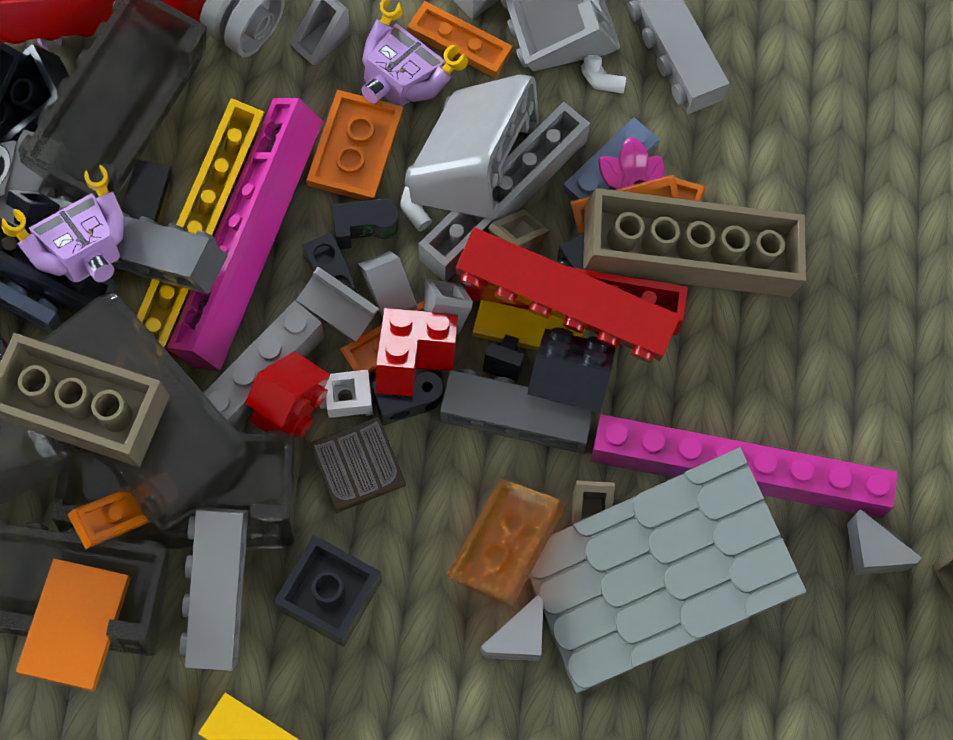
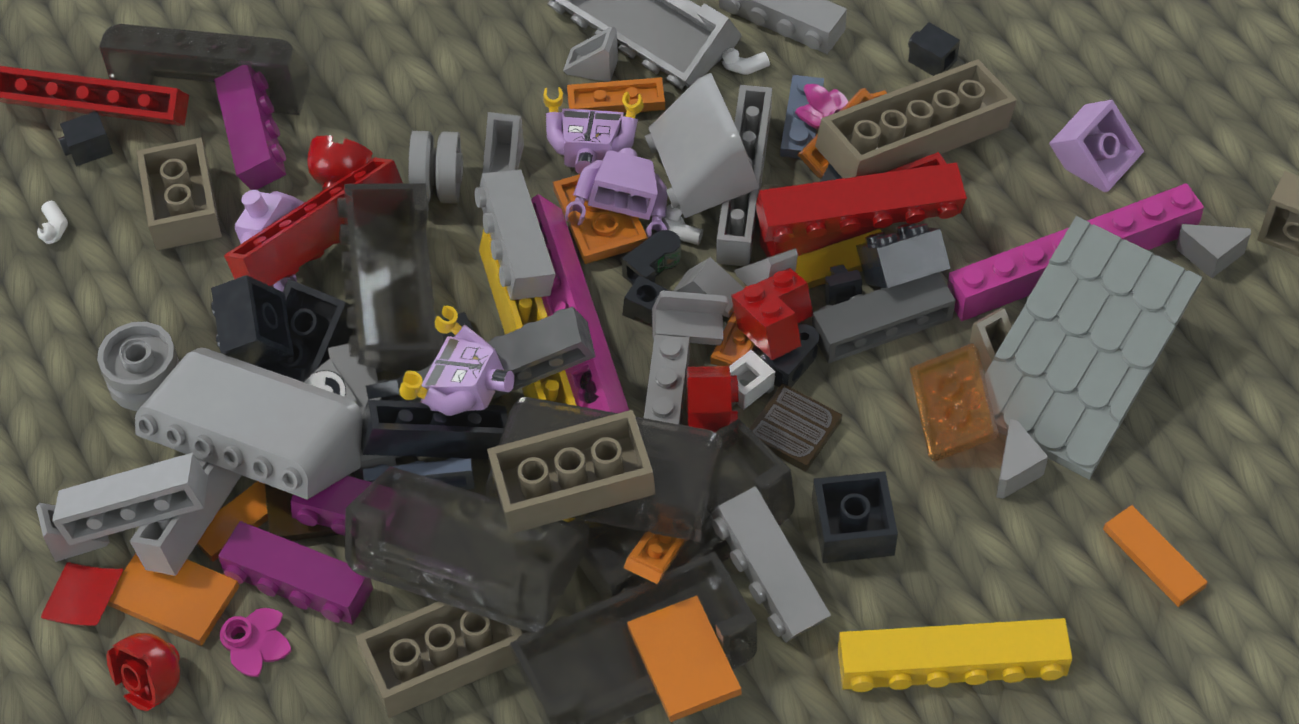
camera: 30 degrees left, 15 degrees down
(242, 126) = (515, 235): none -> light grey brick
(381, 134) = (622, 186): none -> lavender torso
(781, 174) = (933, 49): none -> black brick
(854, 372) = (1097, 145): none -> lavender slope

